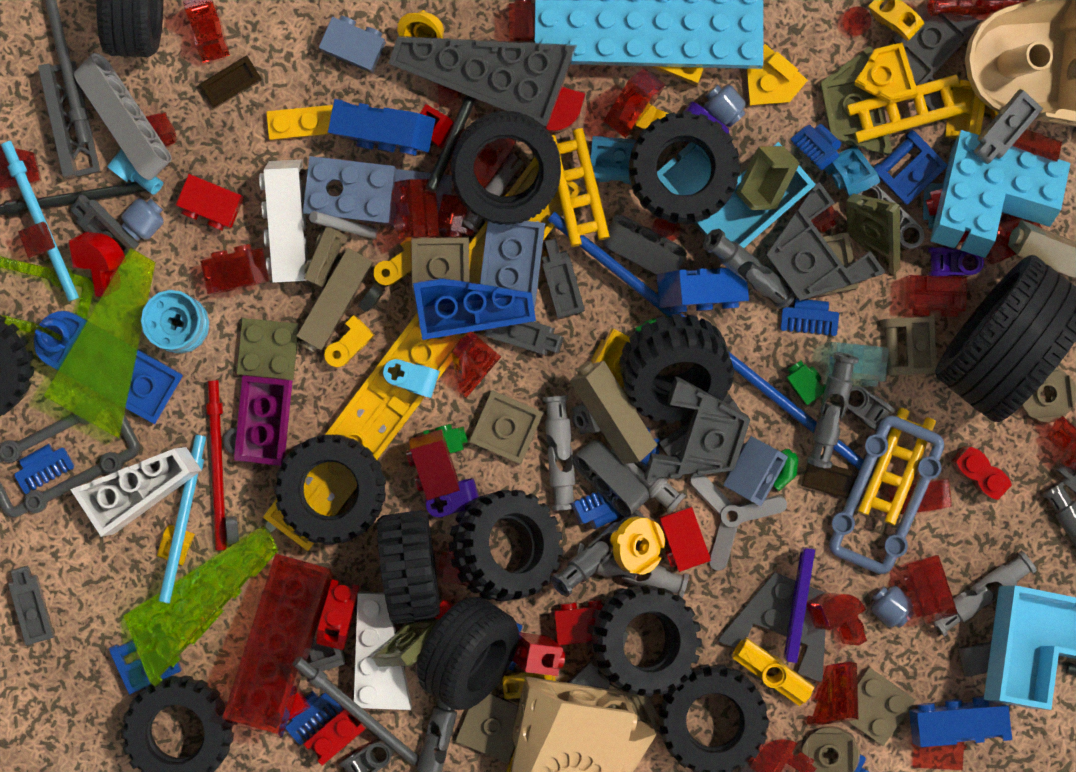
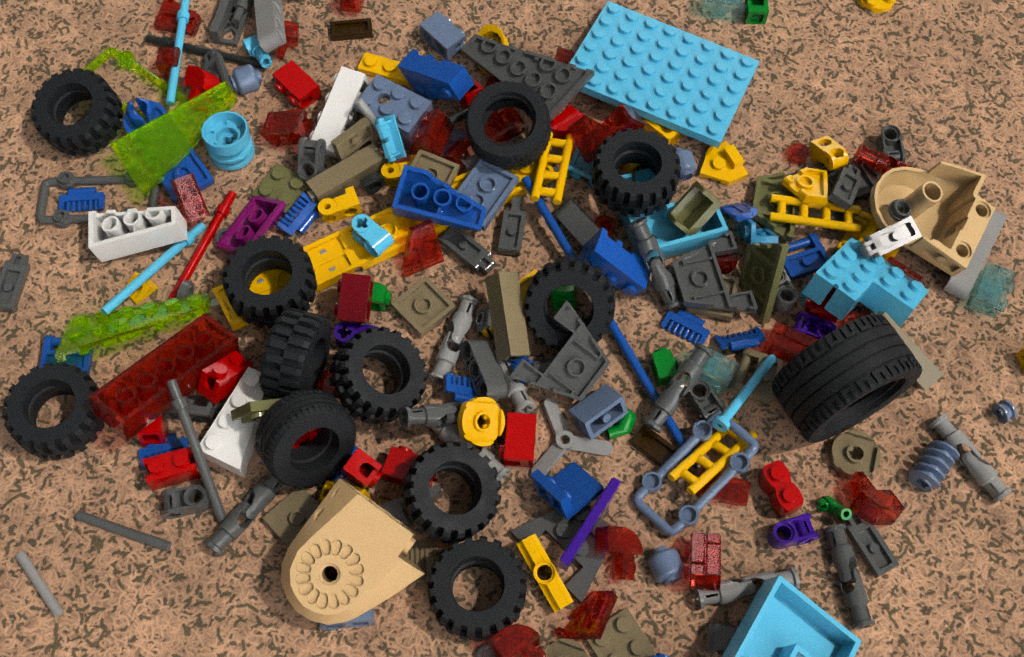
camera: 20 degrees right, 25 degrees down
(174, 419) = (189, 197): none -> clear red brick
(286, 303) = (310, 156): none -> dark grey piece
(313, 378) = (302, 220): none -> blue piece
(369, 237) = (390, 137): none -> medium azure hinge
(607, 129) = (588, 136): none -> clear red wing
(760, 572) = (568, 489): none -> blue bracket
(880, 313) = (740, 341): none -> blue piece
(896, 433) = (722, 422): none -> medium azure bar
(932, 59) = (846, 187): none -> dark grey hinge
(1014, 82) = (899, 209): none -> dark grey plate
(1014, 508) = (796, 530): none -> dark purple piece
(1048, 466) = (833, 508): none -> green arm

